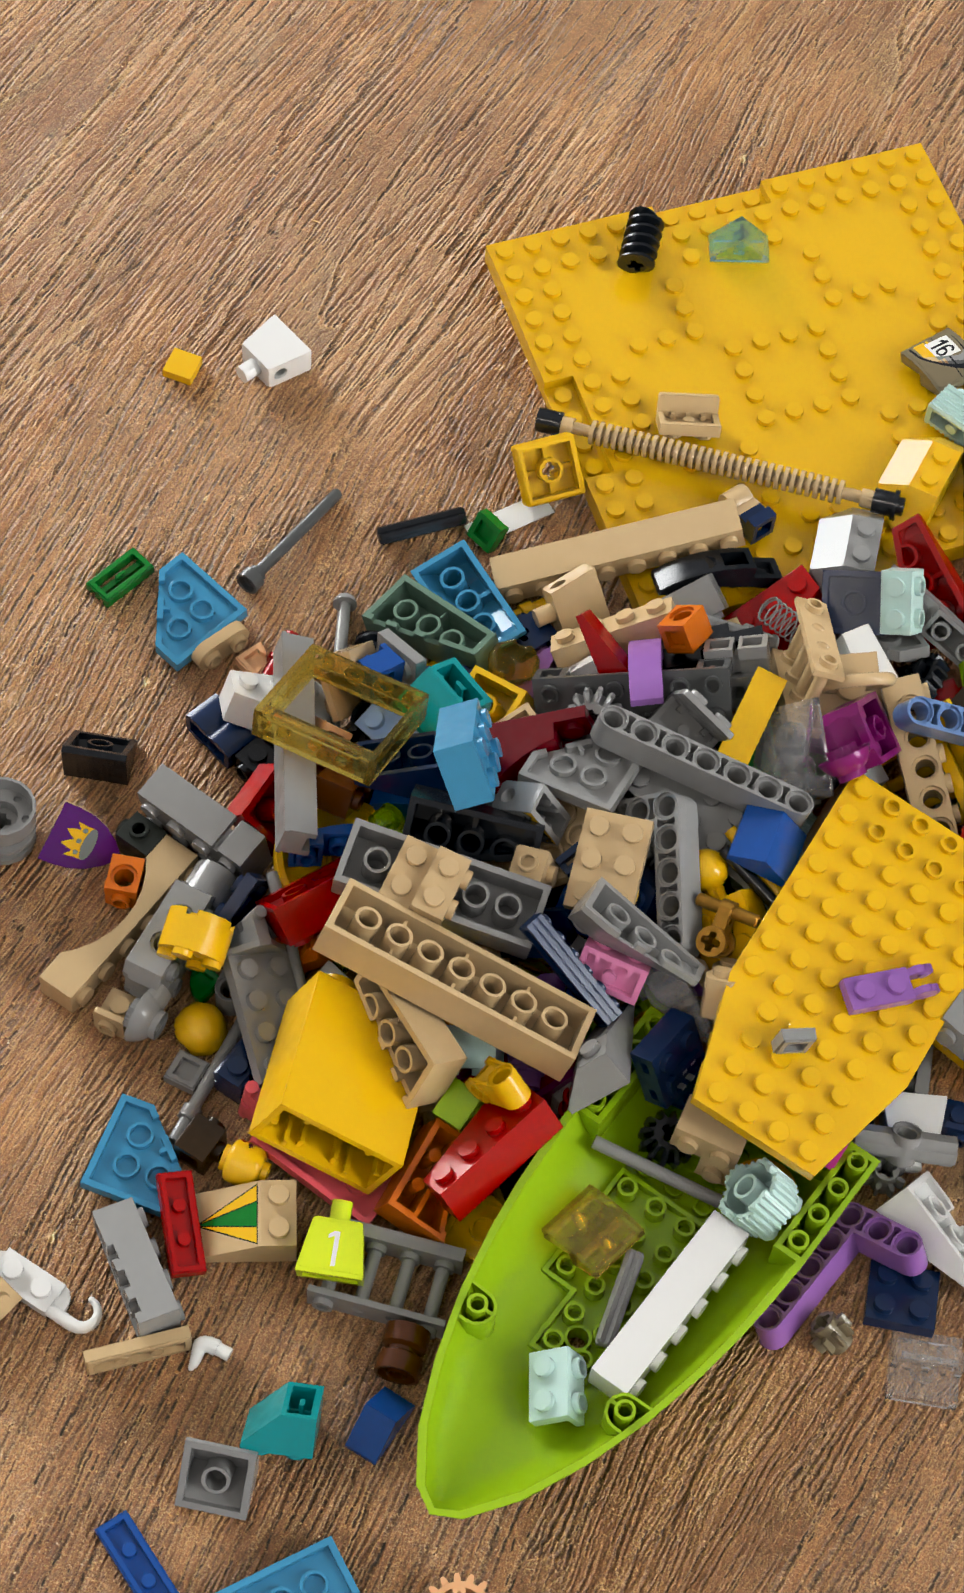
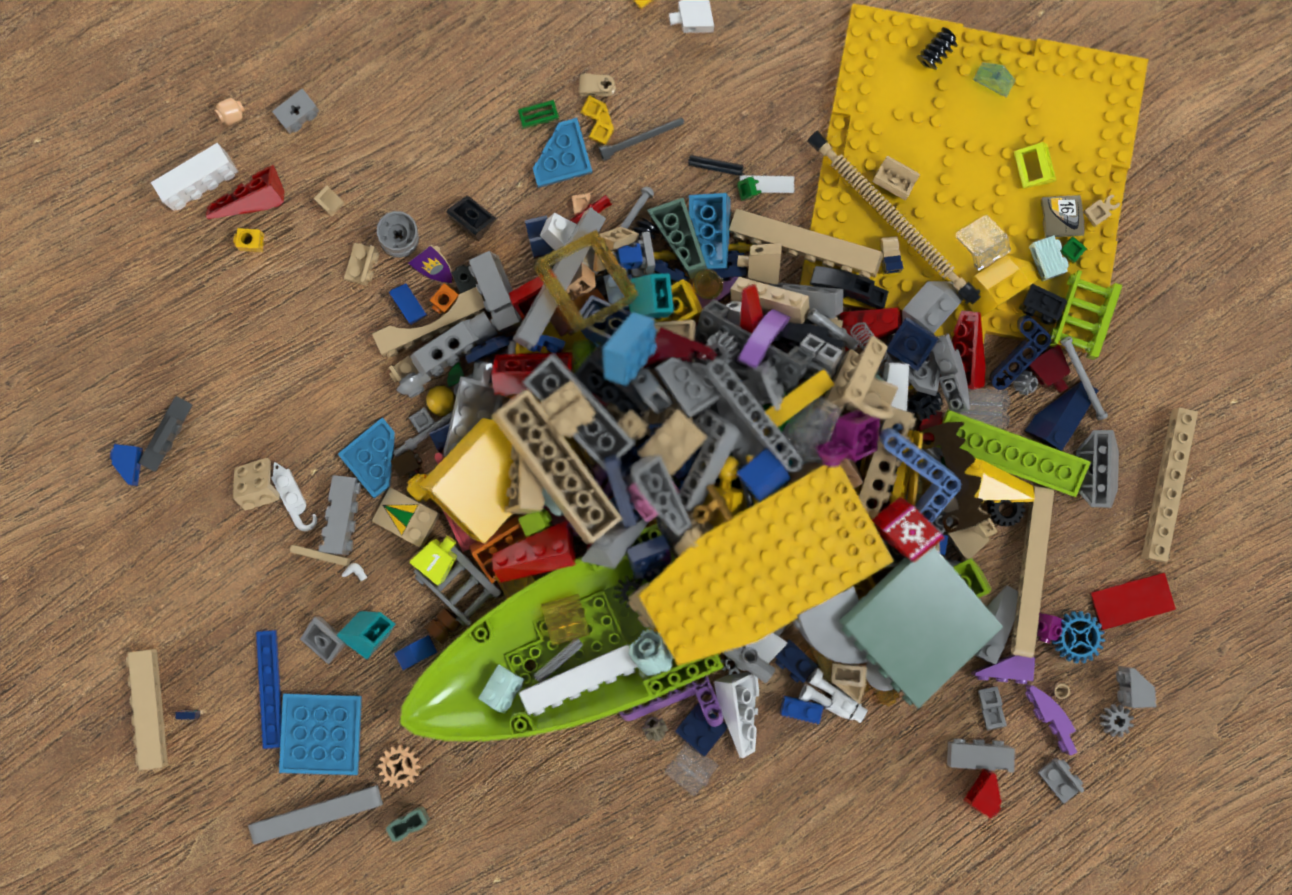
camera: 30 degrees right, 25 degrees up
(67, 918) = (407, 303): none -> blue slope
(180, 1224) = (373, 503): red tile -> none
(184, 502) = (594, 85): none -> tan piece
(196, 938) = (448, 365): yellow brick -> none
(209, 536) = (603, 127): none -> yellow tile
(220, 645) = (560, 187): tan plate -> none
(499, 1085) = (552, 530): yellow piece -> none
(564, 479) = (796, 159): yellow brick -> none
(656, 1171) = (615, 604): light grey bar -> none
(685, 629) = (801, 322): orange brick -> none
(793, 1040) = (705, 595): light grey tile -> none
(856, 295) = (1045, 163): none -> neon yellow tile
(863, 433) = (984, 241): none -> clear bracket
(886, 989) = (774, 588): medium lavender hinge -> none
(902, 601) = (935, 360): light aqua brick -> none

